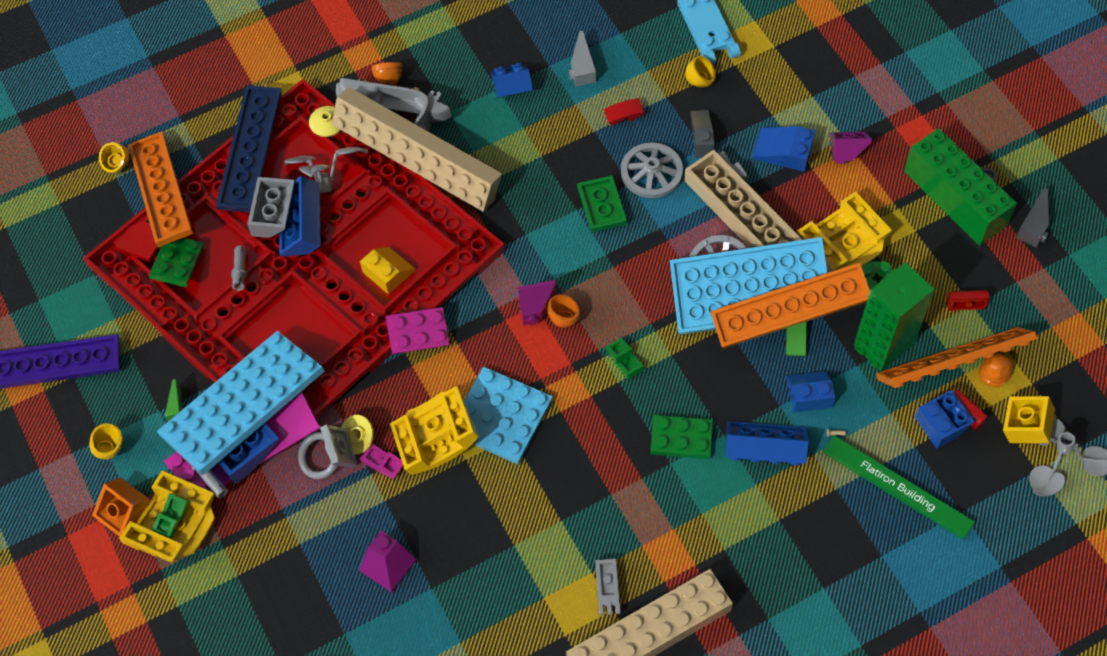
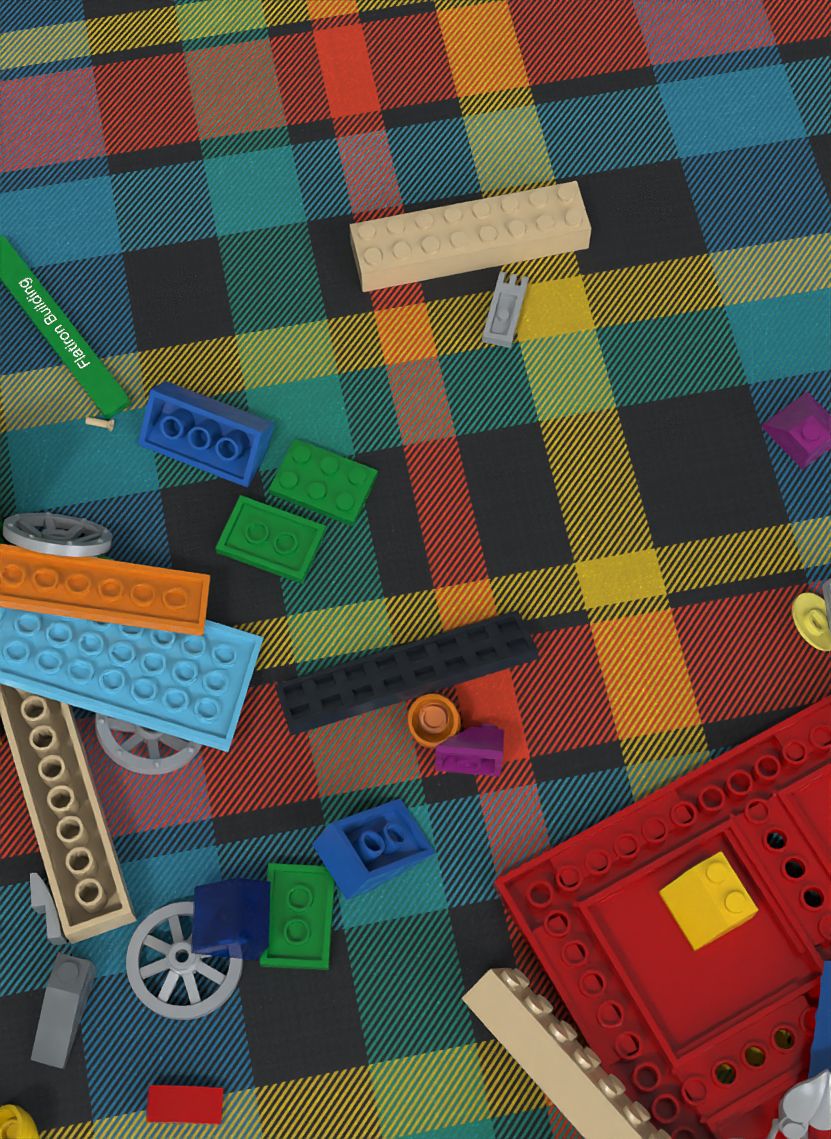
camera: 165 degrees left, 5 degrees up
(381, 461) = (780, 576): dark pink slope -> none
(417, 330) = (683, 761): dark pink plate -> none
(434, 432) = (697, 588): yellow slope -> none
(505, 414) = (584, 596): medium azure plate -> none
(573, 241) = (372, 847): none -> blue slope
(587, 334) = (405, 672): none -> black plate
(624, 358) = (362, 625): green slope -> none
(634, 185) = (231, 918): none -> clear blue slope
(698, 390) = (271, 539): none -> green plate
(810, 391) = (105, 487): blue slope -> none
(820, 342) = (55, 540): none -> light grey wheel

